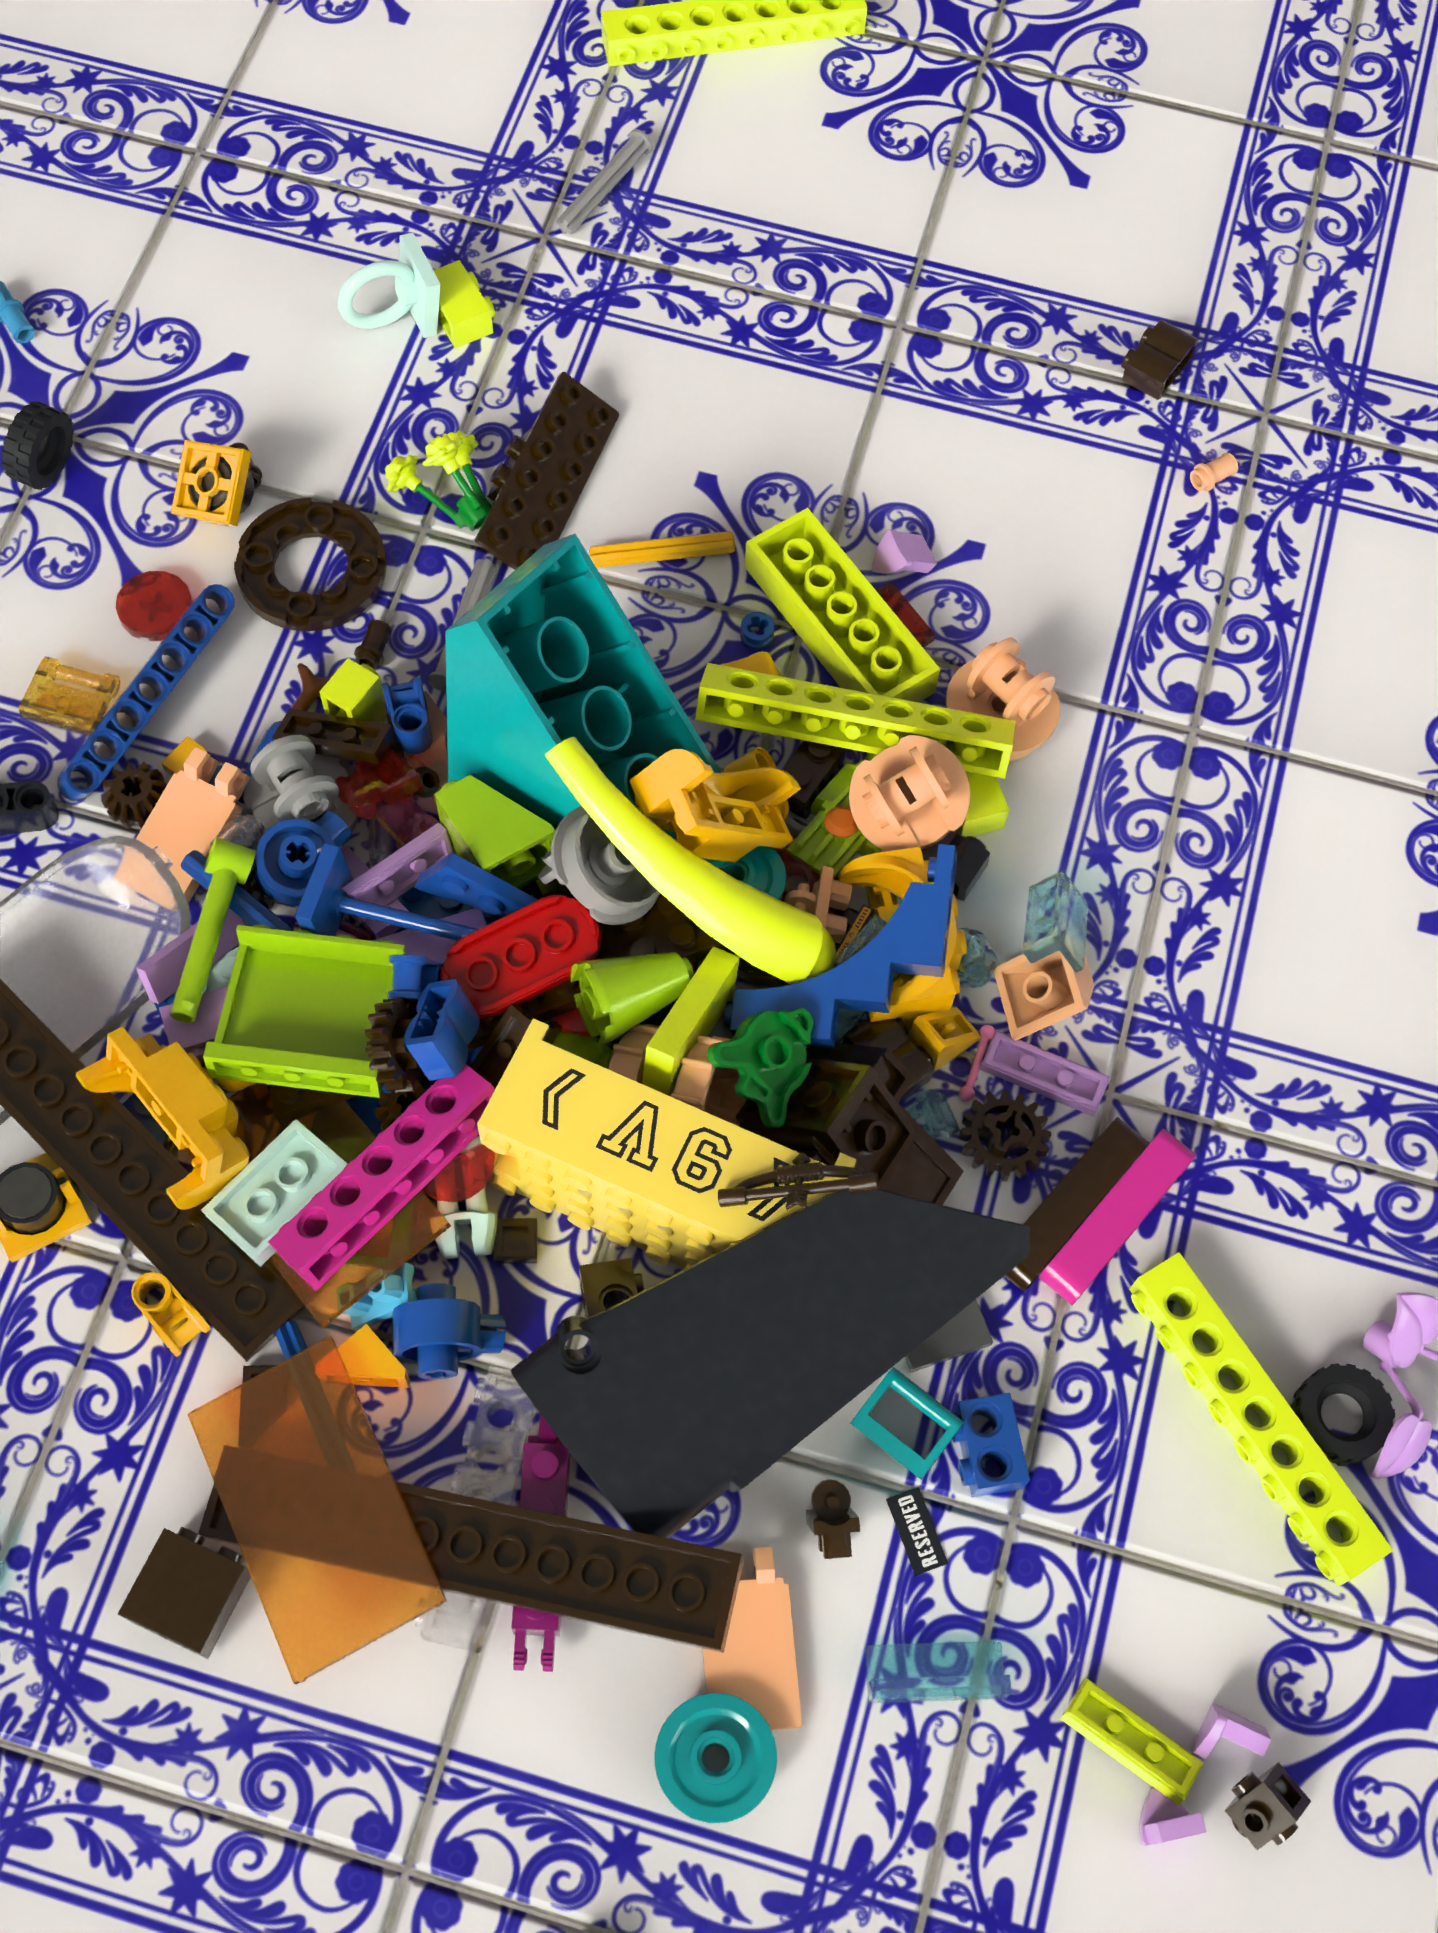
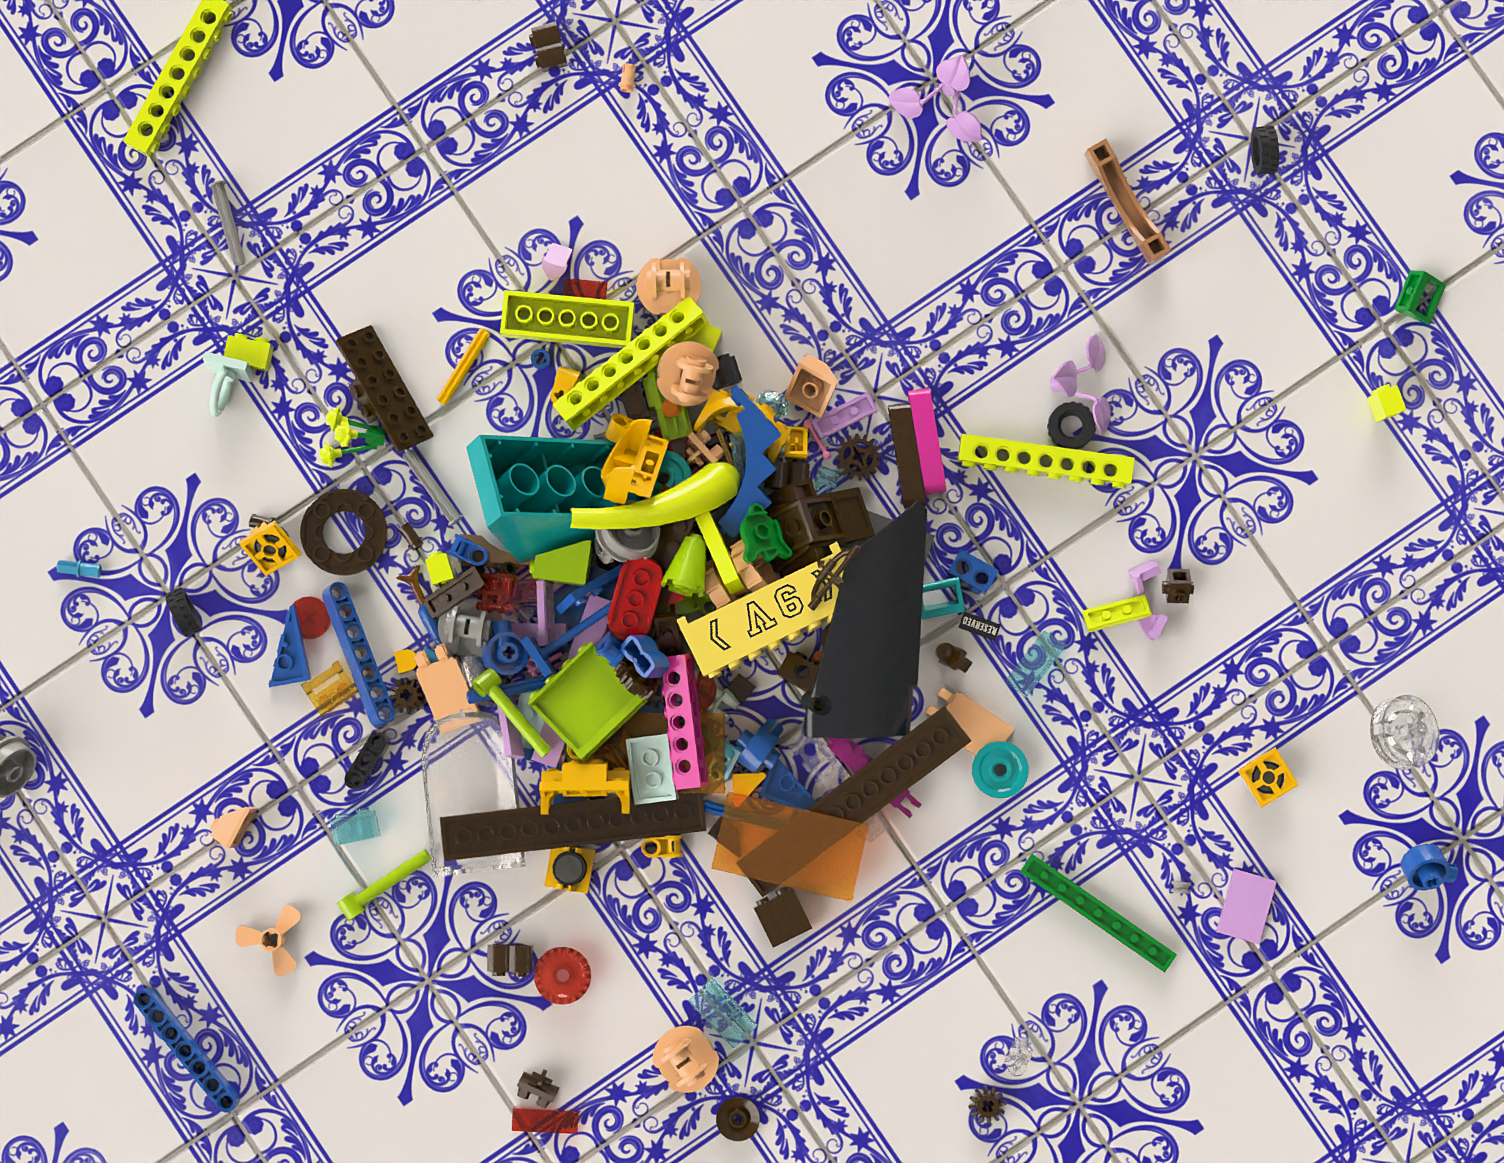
camera: 45 degrees left, 20 degrees up
(84, 613) = (291, 659): none -> blue wing
(408, 1426) = (784, 788): none -> blue wing
(1056, 921) = (788, 356): clear light blue panel -> none

